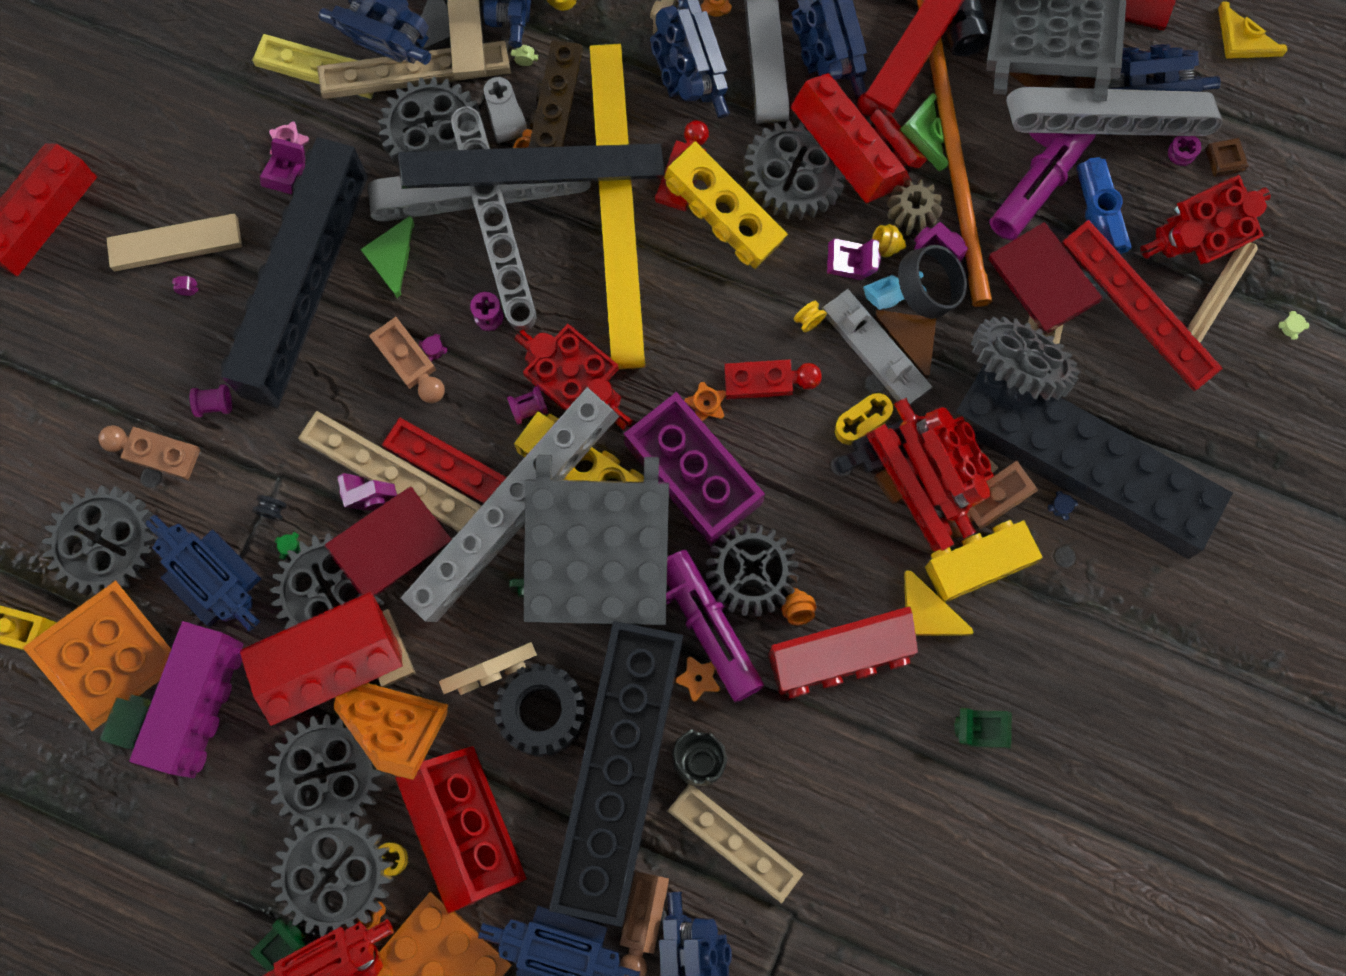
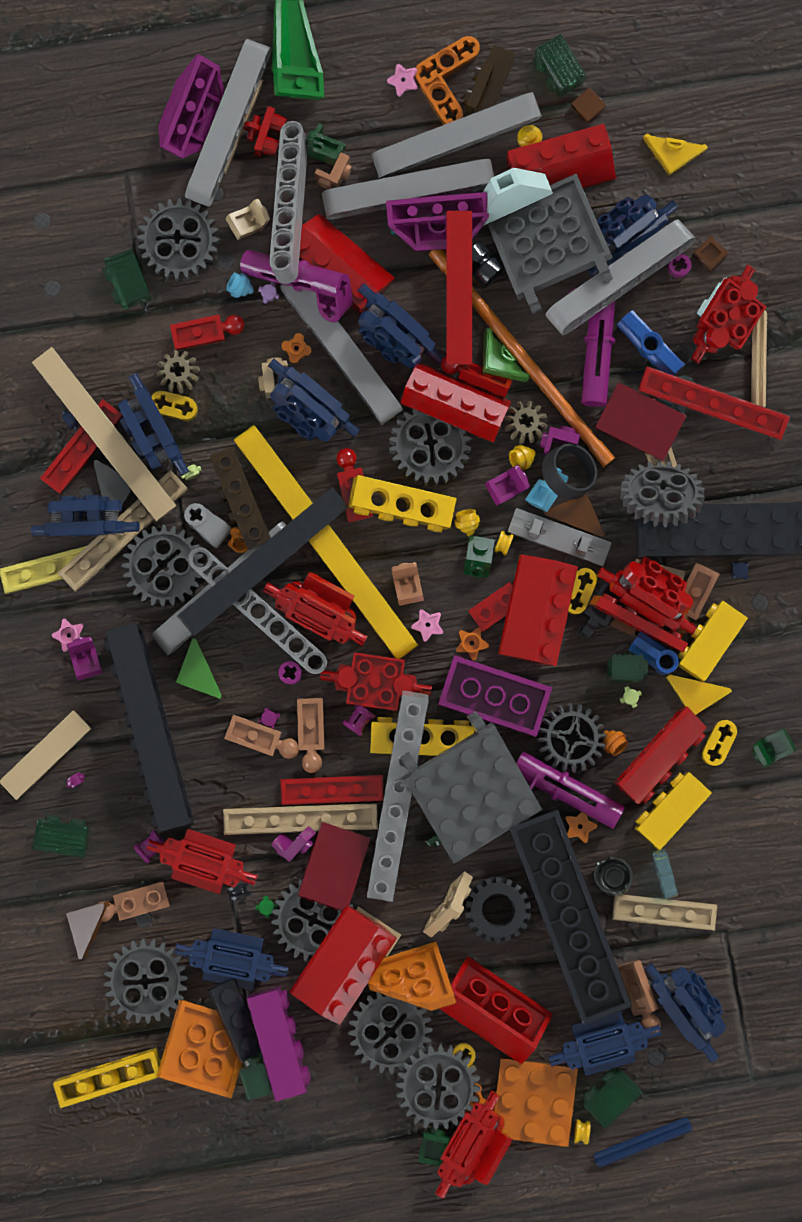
camera: 35 degrees left, 10 degrees up
(81, 441) = (85, 926): none -> tile
(126, 333) = (62, 837): none -> clear green brick
(163, 624) = (235, 1019): none -> black plate
(251, 447) = (202, 861): none -> red piece
(467, 386) = (311, 732): none -> nougat plate
(561, 256) = (318, 607): none -> red piece
(670, 361) = (424, 618): none -> bright pink plate
(676, 293) = (407, 583): none -> nougat bracket
(763, 796) = (664, 874): none -> clear light blue beam
(772, 315) = (479, 556): none -> dark green bracket
(784, 272) = (467, 521): none -> yellow plate
(802, 405) = (538, 610): none -> red slope
(818, 725) = (672, 809): none -> yellow brick
(849, 568) = (630, 696): none -> yellowish green piece
(865, 527) = (626, 668): none -> clear green brick
(905, 533) = (652, 652): none -> blue piece
(917, 677) = (724, 746): none -> yellow beam

